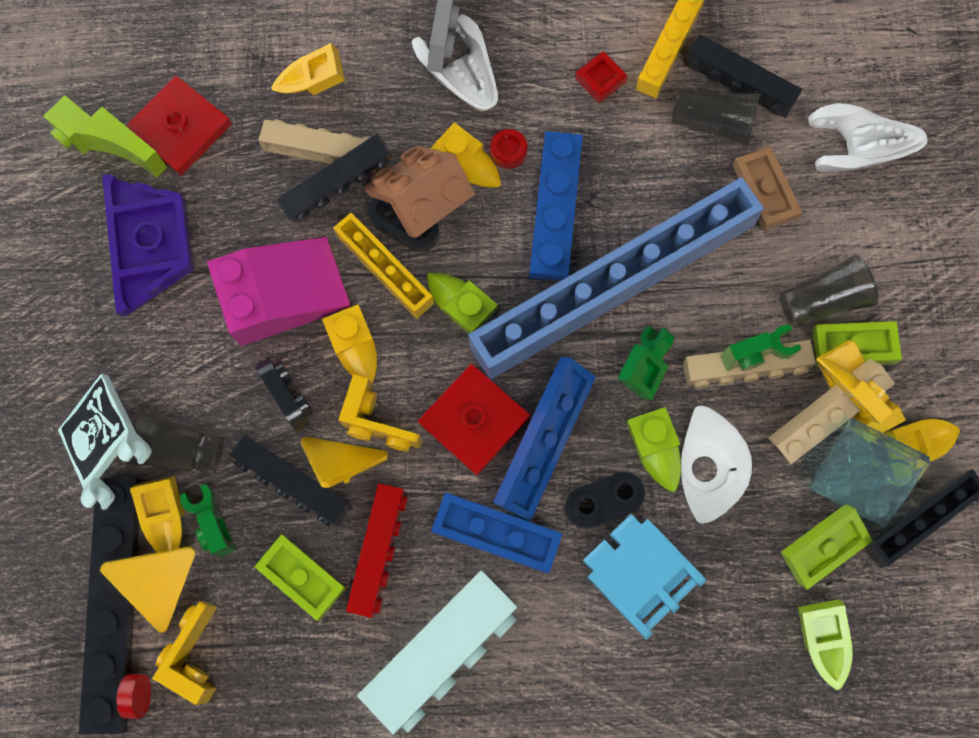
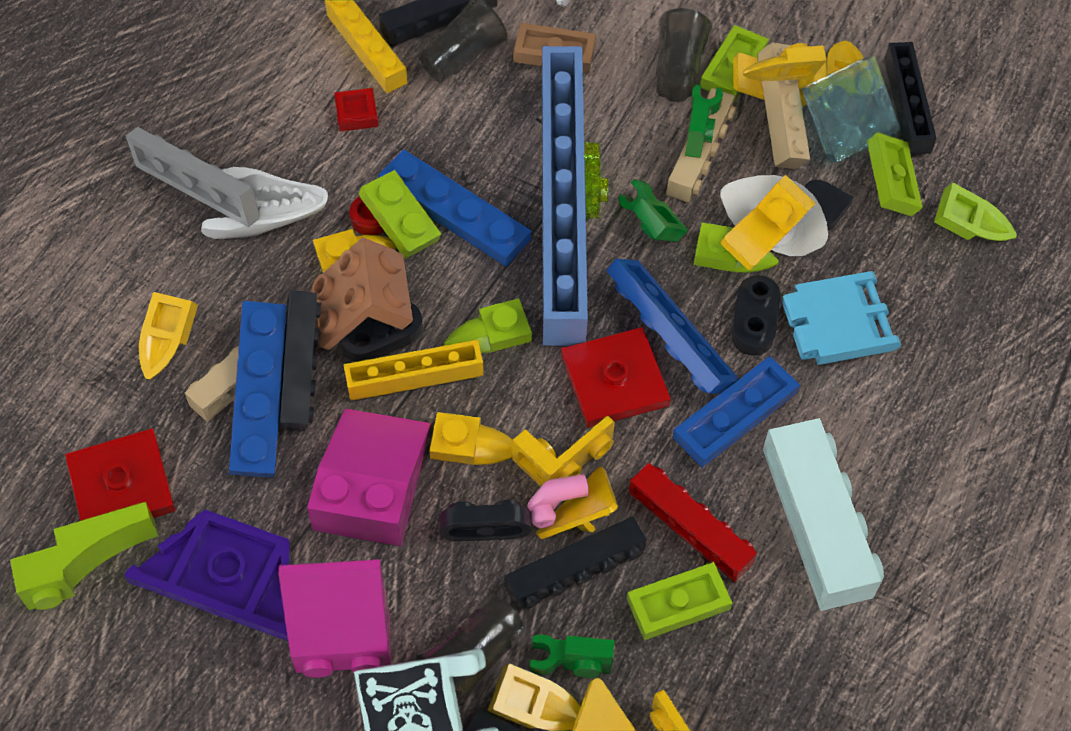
camera: 65 degrees left, 15 degrees down
(130, 339) = (336, 616): none -> dark pink slope
(288, 168) = (257, 390): none -> blue plate
(330, 431) = (551, 494): none -> bright pink arm
(516, 169) = (399, 214): none -> lime plate
(641, 300) = (595, 187): none -> clear neon green plate
(687, 462) = (767, 223): none -> yellow bracket
(758, 501) = (831, 199): none -> black tile

